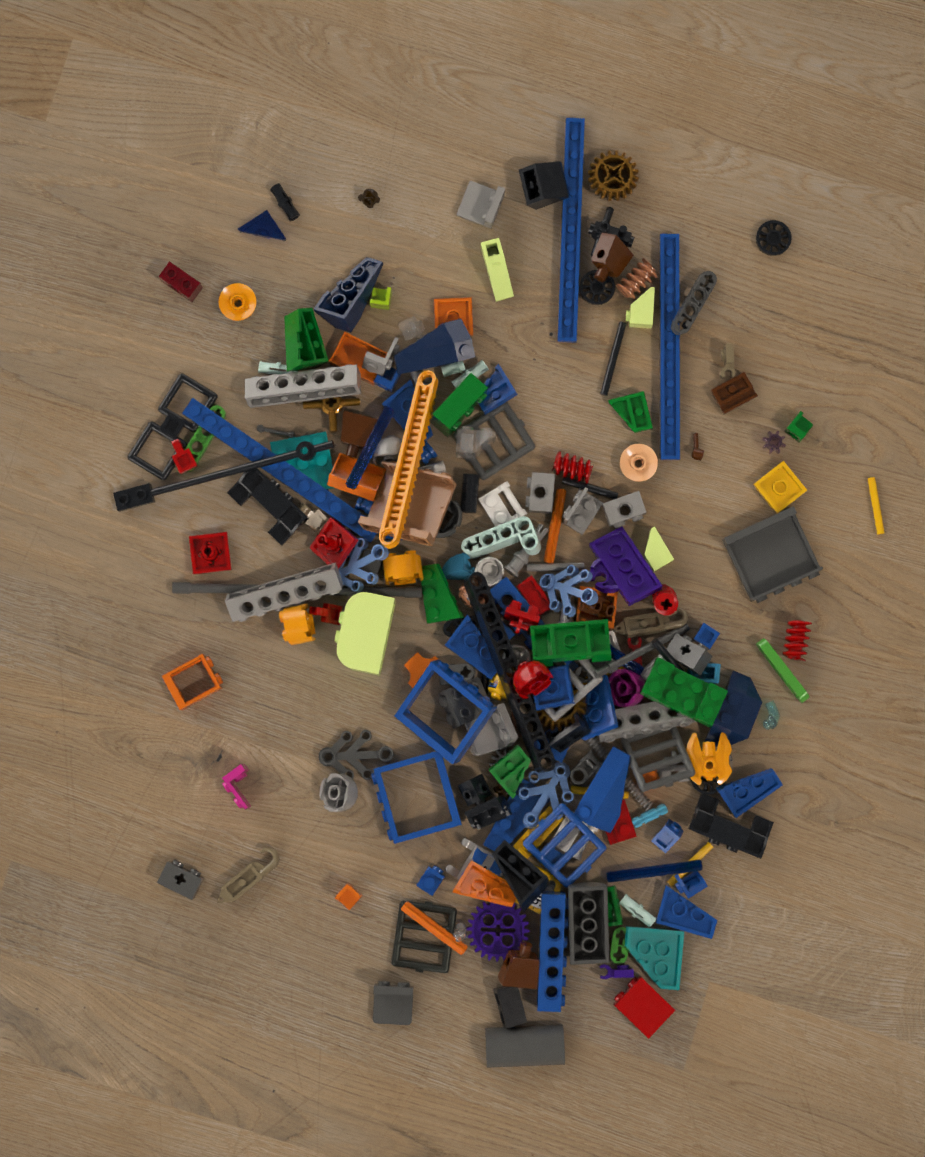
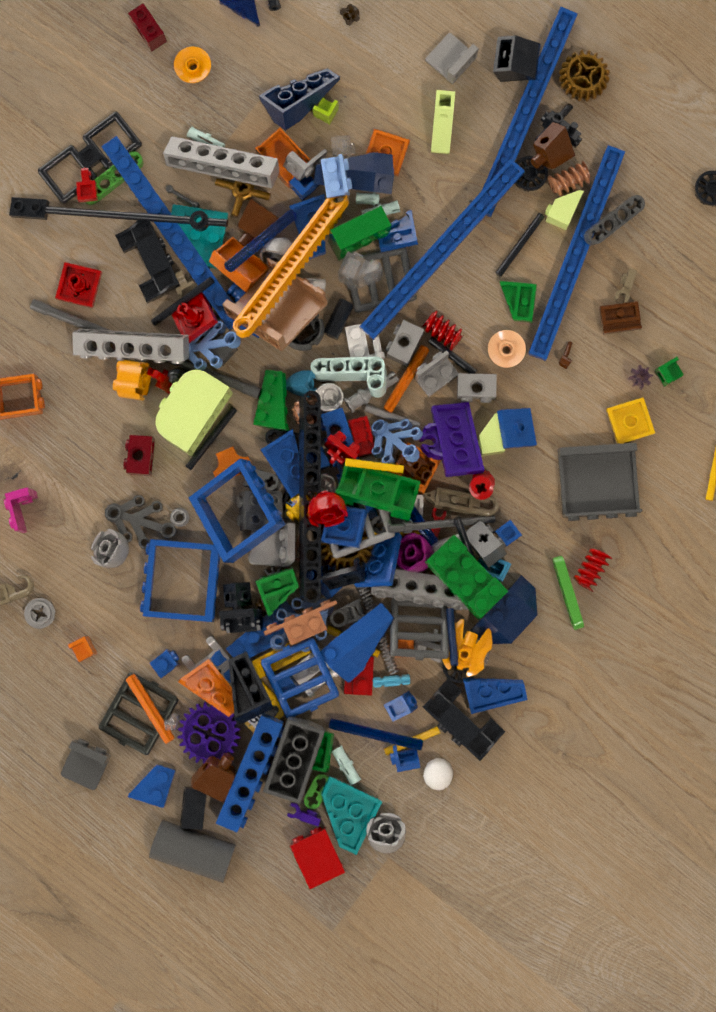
camera: 25 degrees right, 0 degrees up
(287, 885) = (31, 616): none -> light grey gear
(303, 341) = (238, 121): green wedge -> none
(317, 530) = (185, 299): none -> black bar
(337, 603) = (175, 374): none -> black arm
(339, 702) = (144, 466): none -> dark red brick
(392, 651) = (211, 438): none -> black bar
(397, 737) = (173, 517): none -> light grey plate
(402, 568) = (249, 364): light orange brick -> none
(417, 360) = (335, 176): none -> light blue bracket
(428, 453) = (312, 267): blue wheel -> none
(465, 999) = (154, 786): none -> blue wing
(542, 391) = (442, 249): none -> blue plate
(550, 795) = (303, 626): none -> nougat bracket
(559, 620) = (374, 465): none -> yellow bar
(676, 534) = (516, 428): none -> blue plate
(683, 915) = (387, 786): blue wing -> none
(691, 753) = (452, 637): none -> dark blue bar
(699, 959) = (386, 833): none -> light grey cylinder
(726, 886) = (438, 774): none -> white hair
(773, 718) = (542, 633): clear light blue arm -> none

